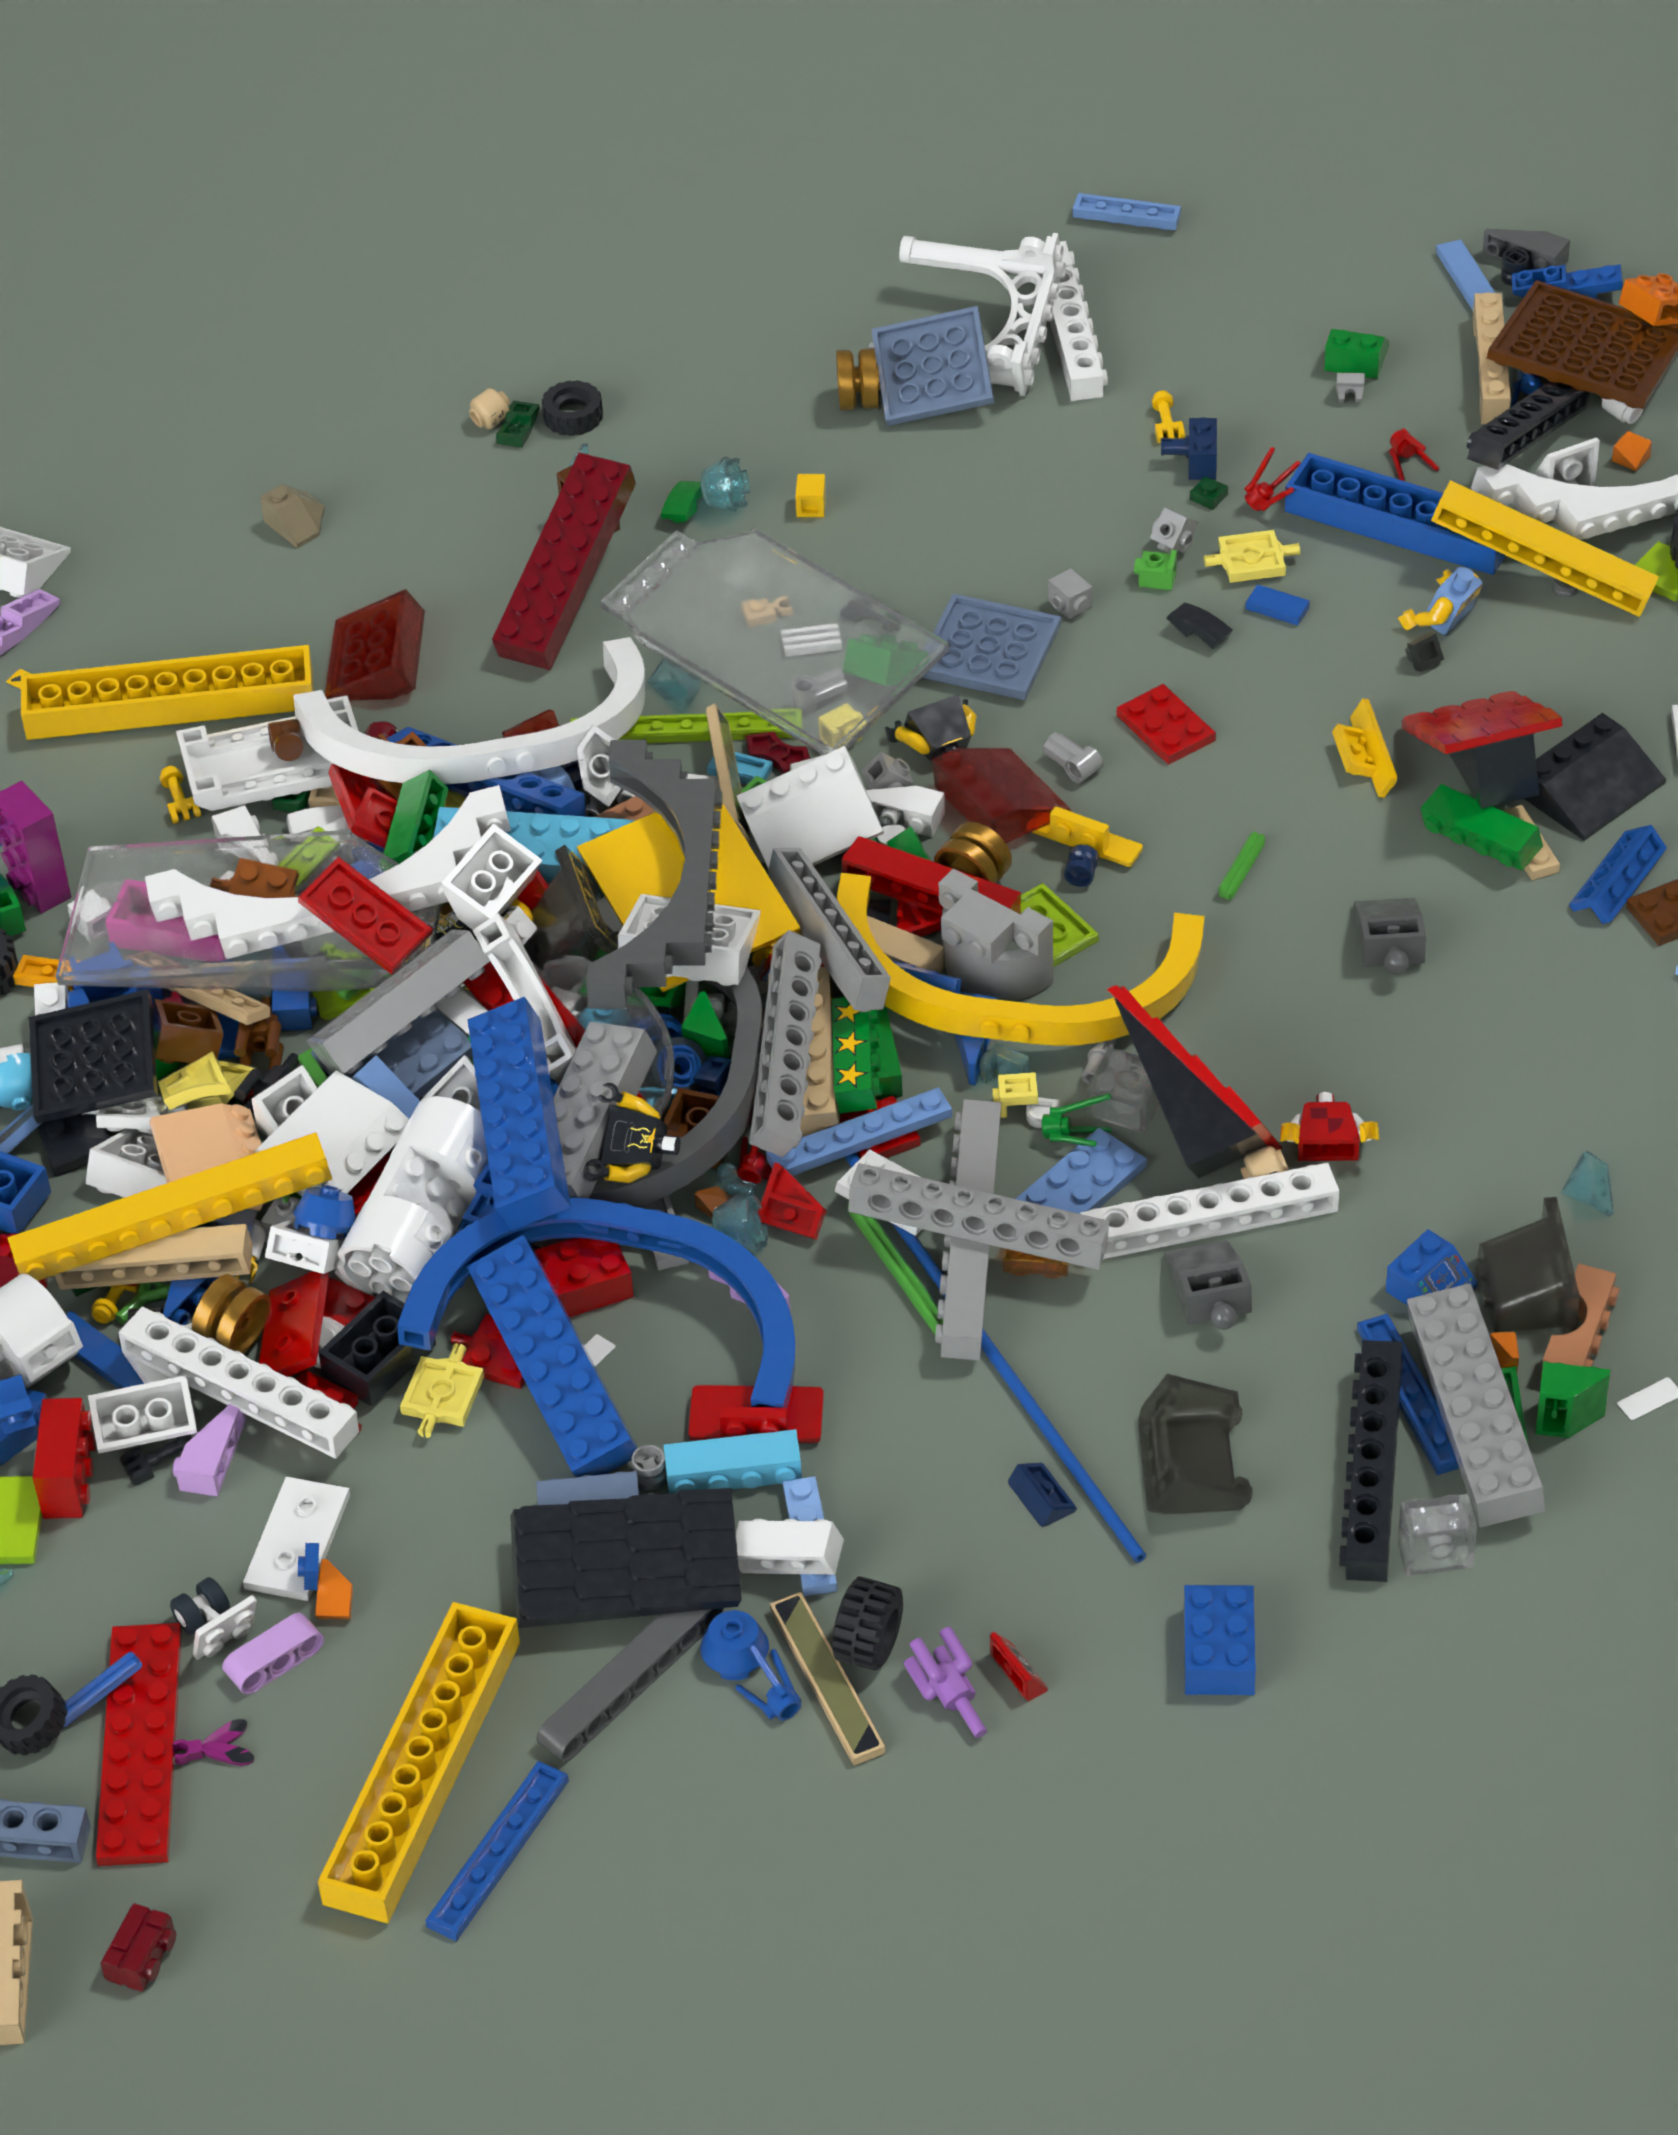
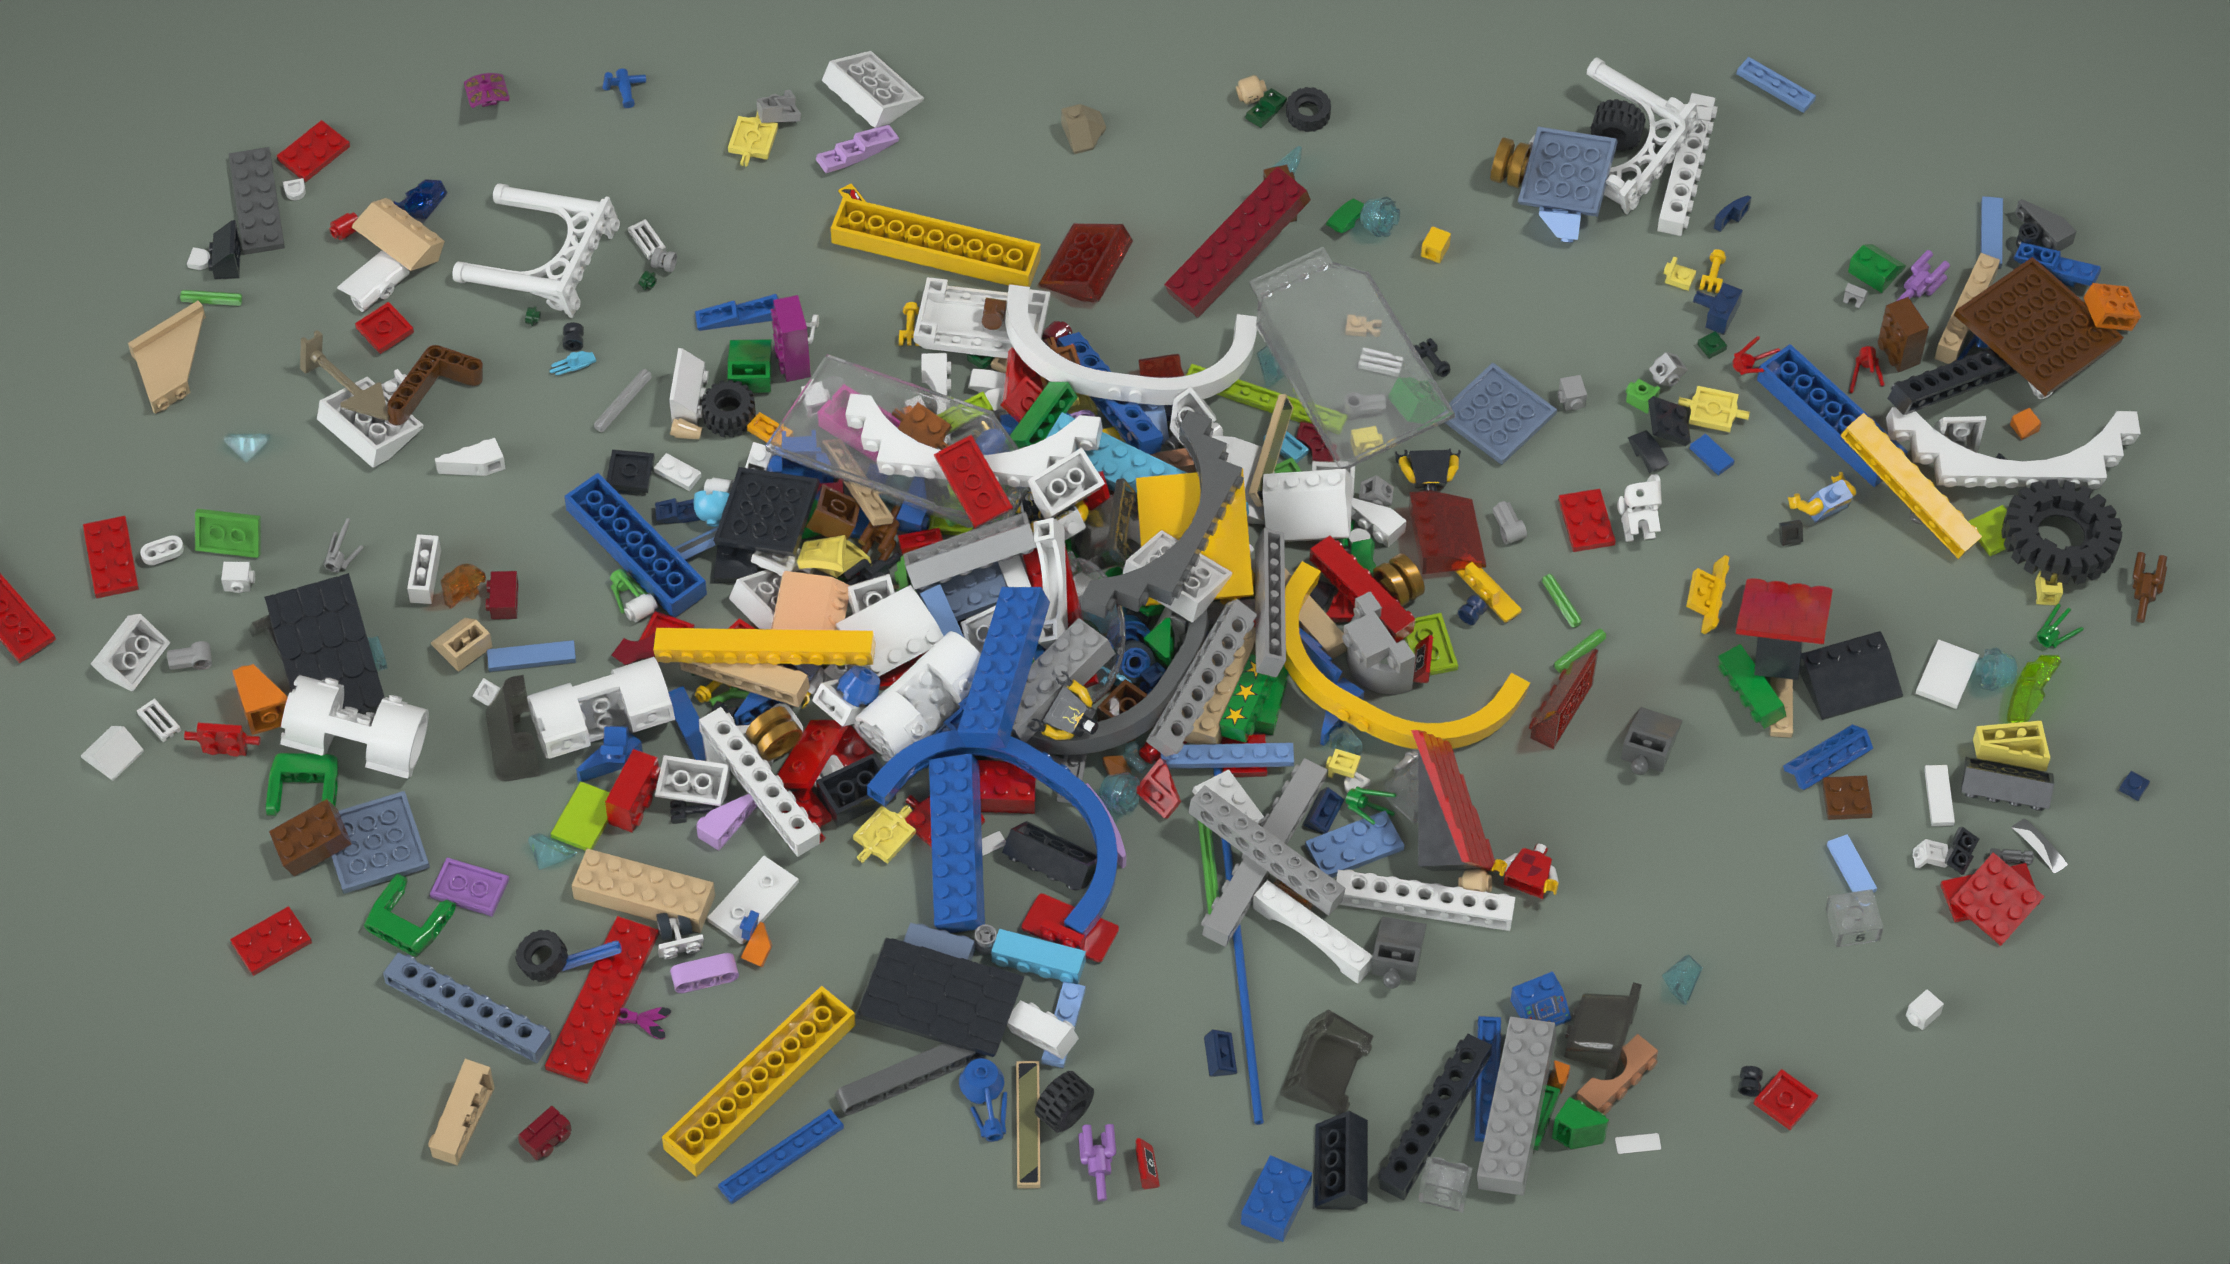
camera: 20 degrees right, 10 degrees up
(129, 1578) = (641, 889): none -> tan brick
(297, 1037) = (919, 539): none -> red plate
(685, 1335) = (1051, 855): none -> black slope
(953, 423) = (1562, 223): none -> light blue slope
(966, 284) = (1619, 121): none -> black tyre
(1017, 1157) = (1323, 811): none -> dark blue slope
(1061, 943) = (1423, 655): none -> slope
(1126, 436) = (1679, 275): none -> light yellow bracket
(1149, 1310) = (1346, 954): none -> white arch
(1153, 350) = (1734, 210): none -> dark blue slope
(1186, 819) = (1561, 600): none -> bright green axle
(1207, 582) = (1669, 421): none -> black plate
(1236, 679) = (1645, 508): none -> white piece
(1257, 919) = (1564, 700): none -> clear red slope
(1281, 1562) = (1341, 1162): none -> black slope
(1421, 346) = (1922, 280): none -> medium lavender plant
(1437, 399) = (1903, 334): none -> reddish brown brick

